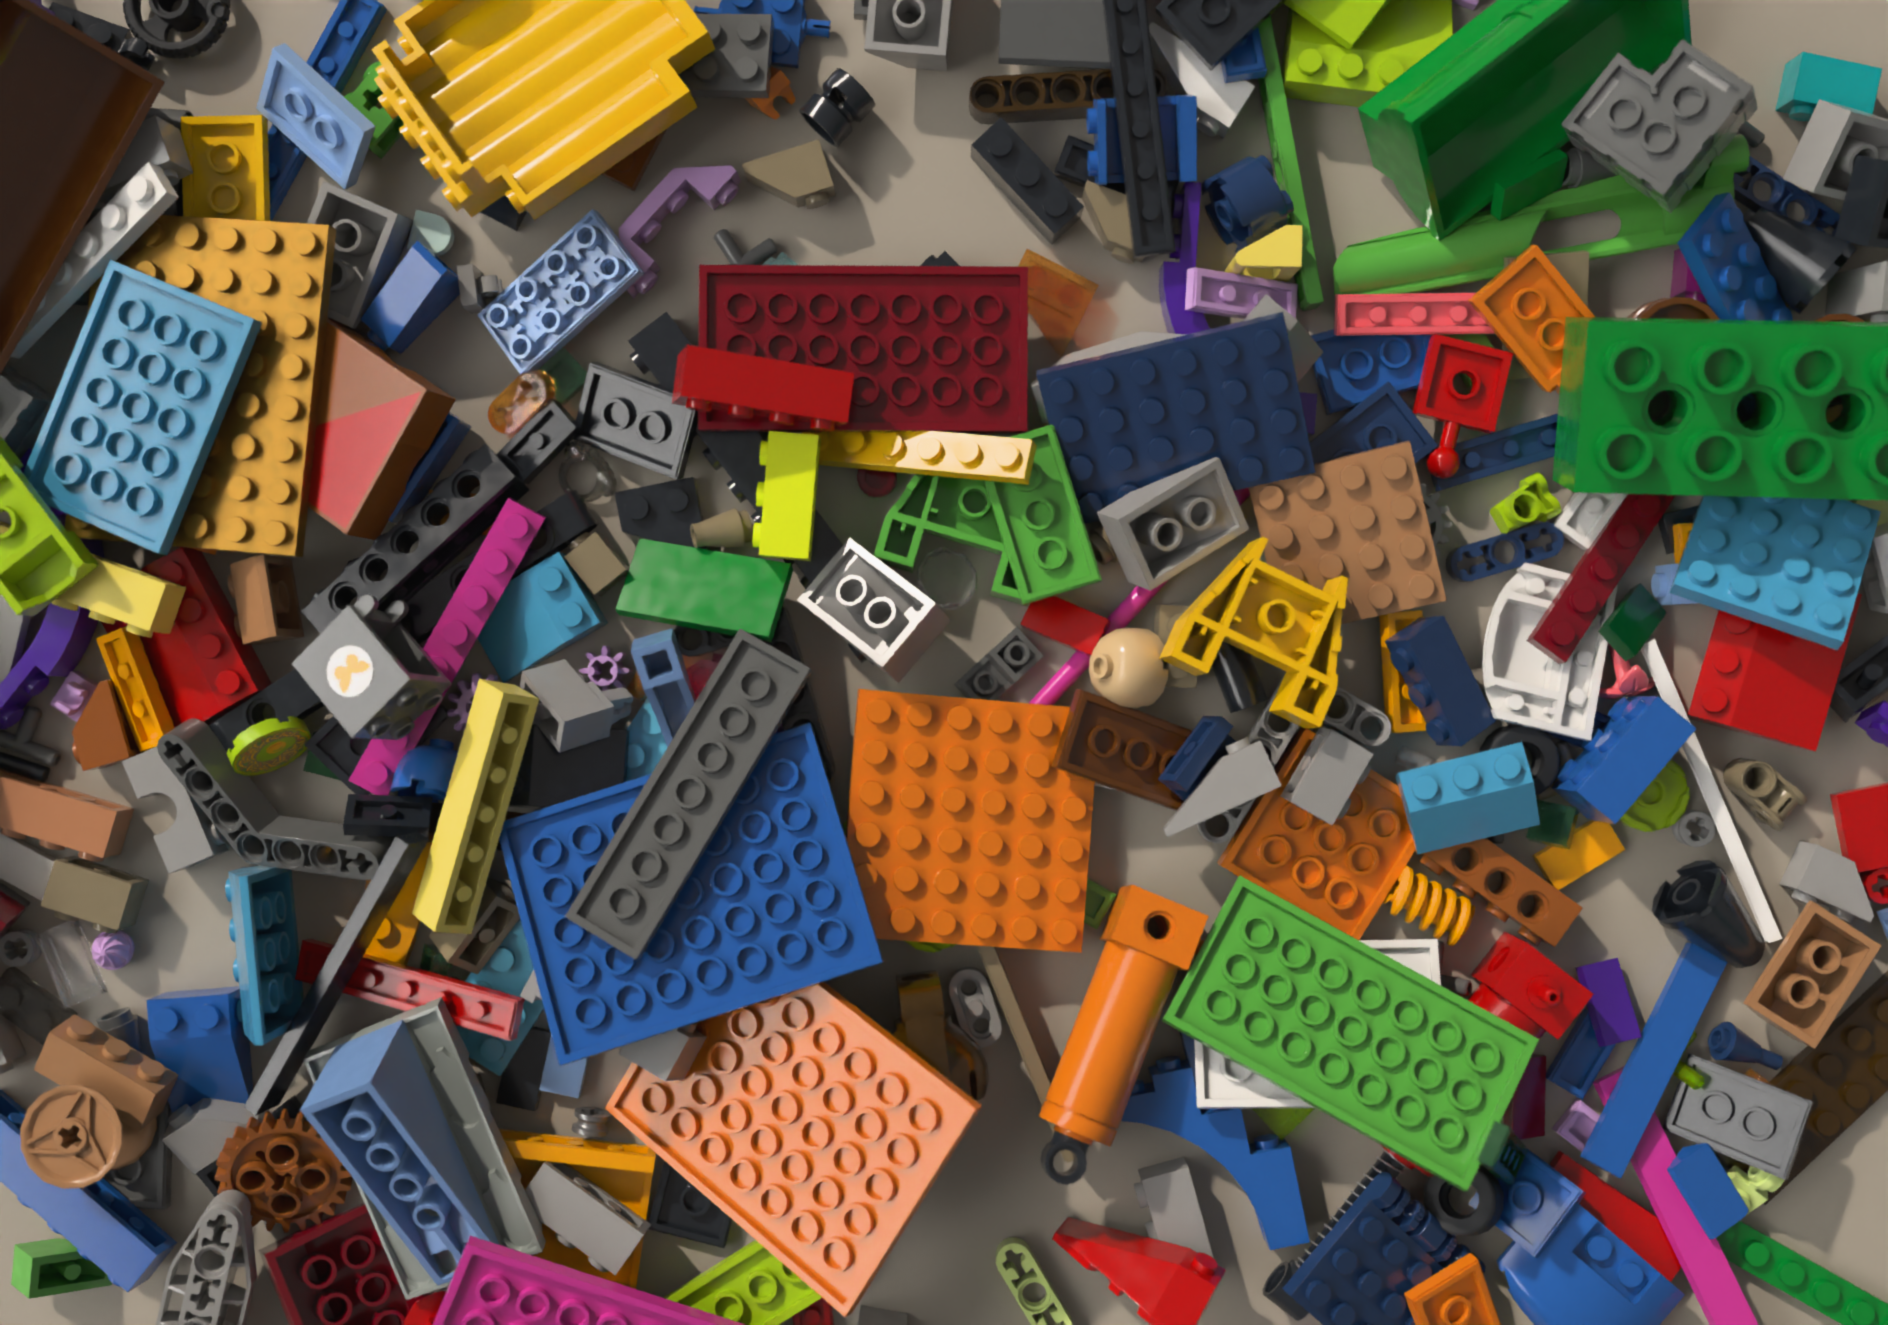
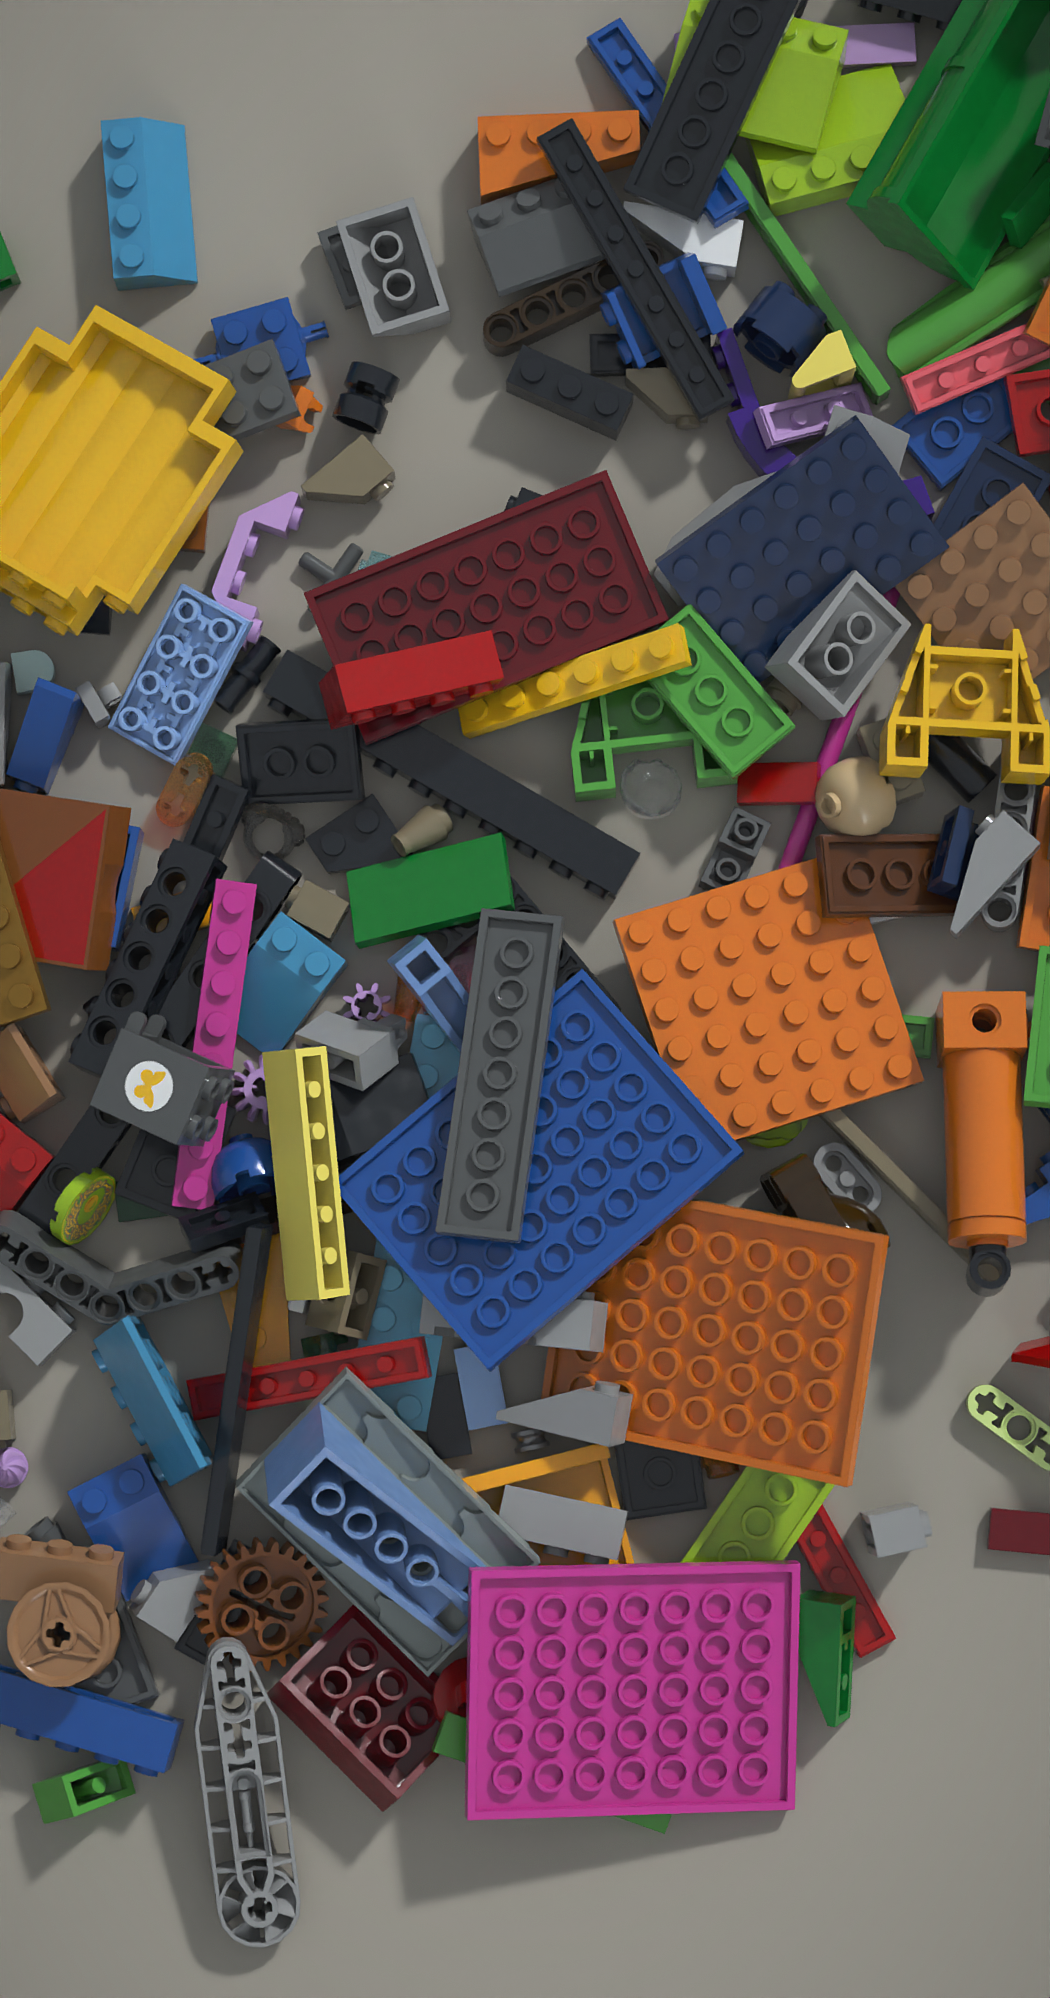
camera: 15 degrees left, 5 degrees down
(623, 319) = (246, 674): none -> black pin
(640, 1127) = (587, 1414): none -> light grey slope
(787, 495) = (473, 770): neon yellow brick -> none
(874, 610) = (598, 841): light grey slope -> none
(876, 483) = (546, 728): dark red tile -> none
(1056, 299) = (643, 488): clear orange wing -> none

